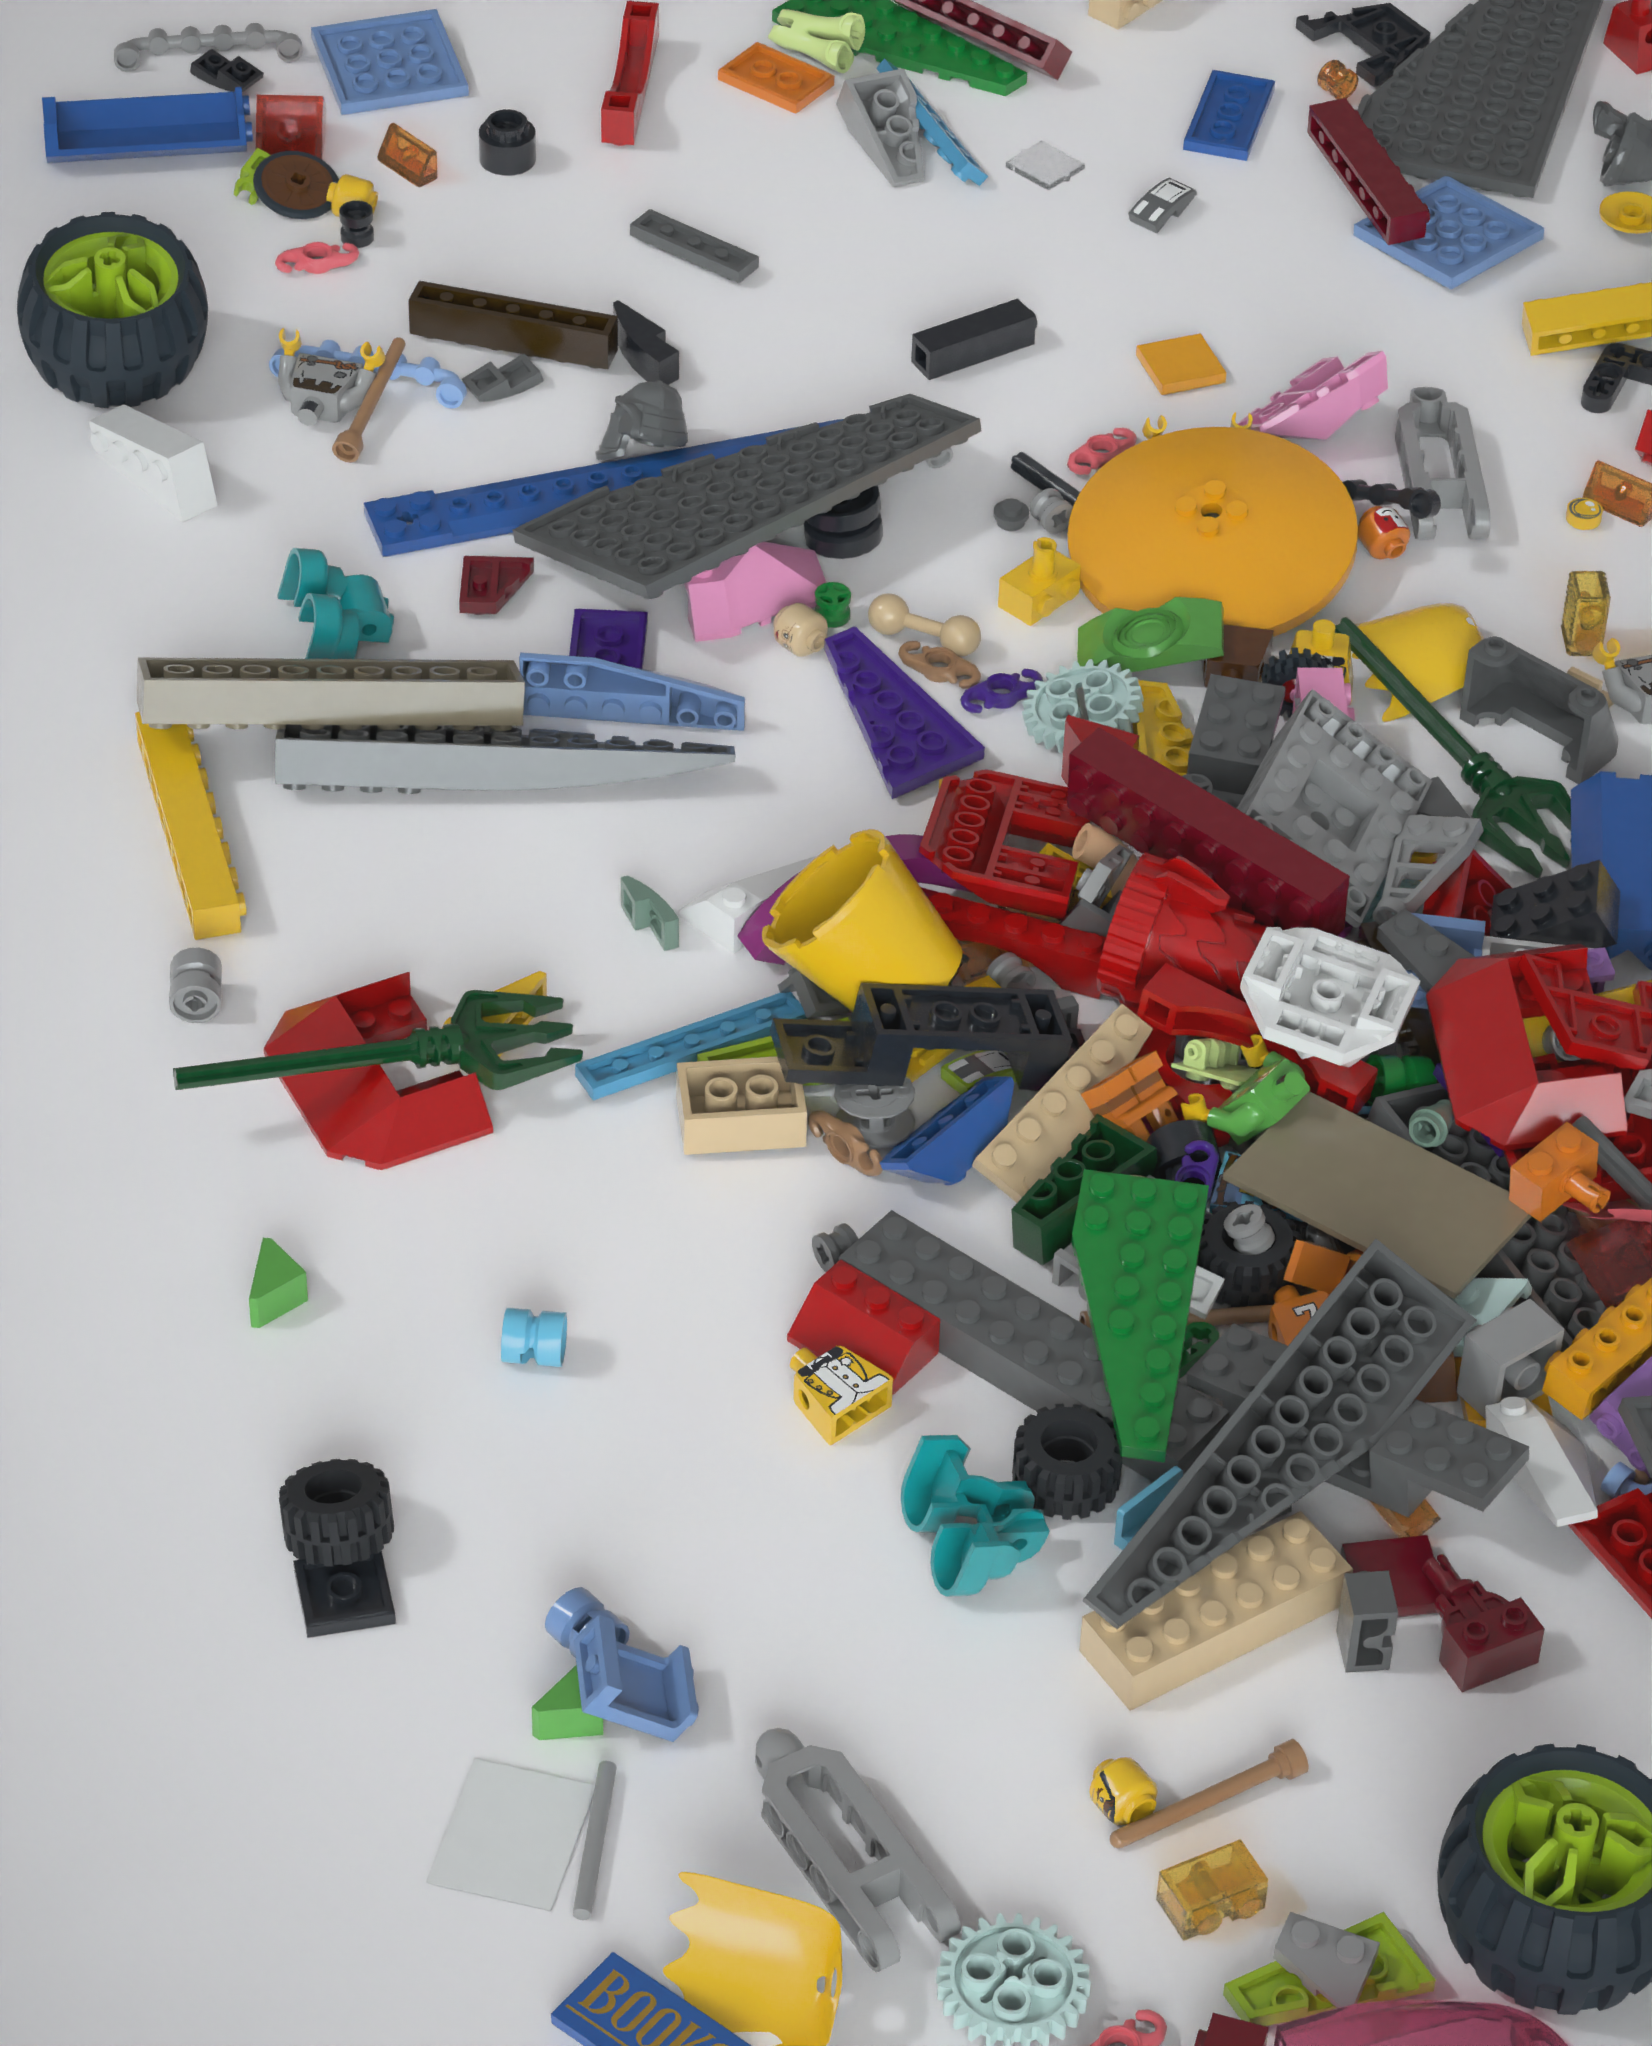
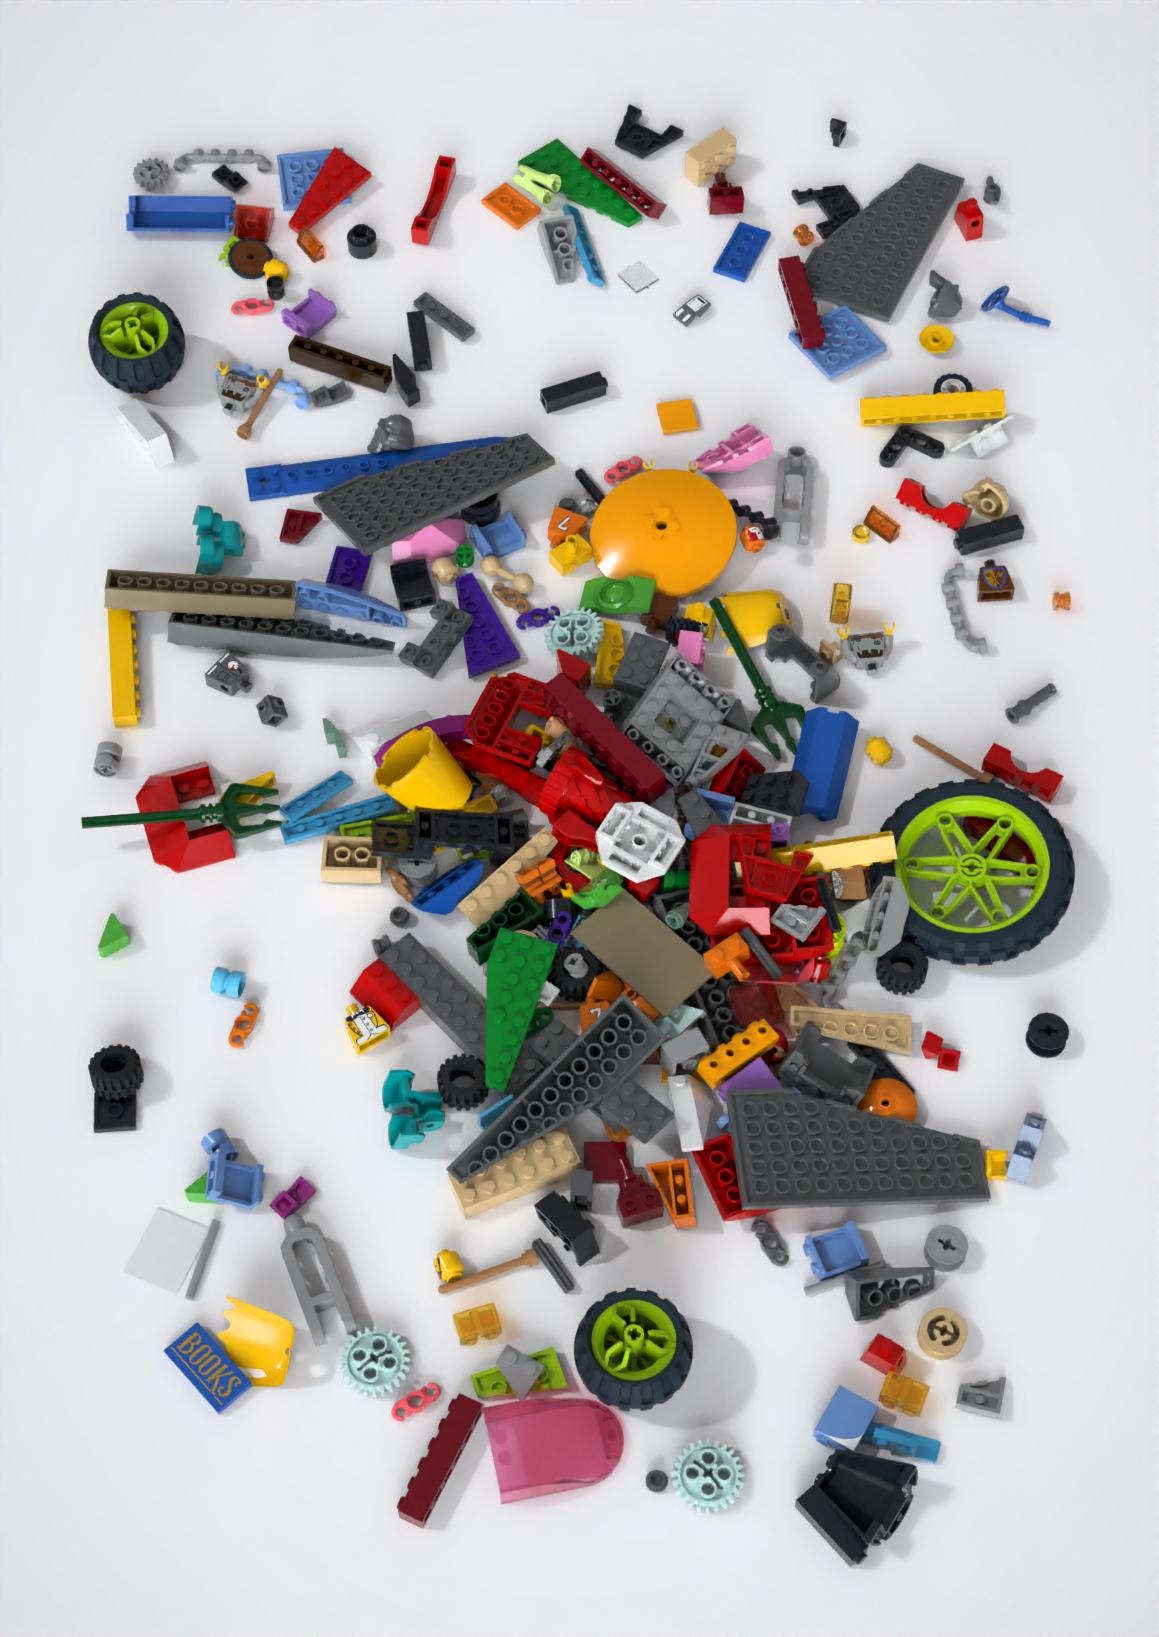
camera: 10 degrees right, 15 degrees up
(74, 71) = (151, 173): none -> light grey gear
(411, 830) = (228, 675): none -> dark grey torso
(426, 68) = (332, 185): none -> red wing
(439, 256) = (310, 314): none -> medium lavender panel
(513, 876) = (271, 710): none -> dark grey brick
(571, 1426) = (236, 1031): none -> orange piece
(636, 1011) = (316, 796): none -> dark azure tile
(656, 282) = (419, 341): none -> black brick
(741, 656) = (412, 585): none -> black panel
(762, 1707) = (293, 1199): none -> magenta slope
(822, 739) = (440, 641): none -> dark grey bracket
(857, 1196) = (399, 916): none -> dark grey plate
(901, 567) = (499, 537): none -> medium blue panel
(1012, 539) = (564, 524): none -> orange torso
(1179, 35) = (724, 198): none -> dark red brick
(1341, 1772) = (552, 1265): none -> dark grey axle
(1356, 1689) = (569, 1226): none -> black wedge
(1563, 1600) = (676, 1190): none -> orange wedge

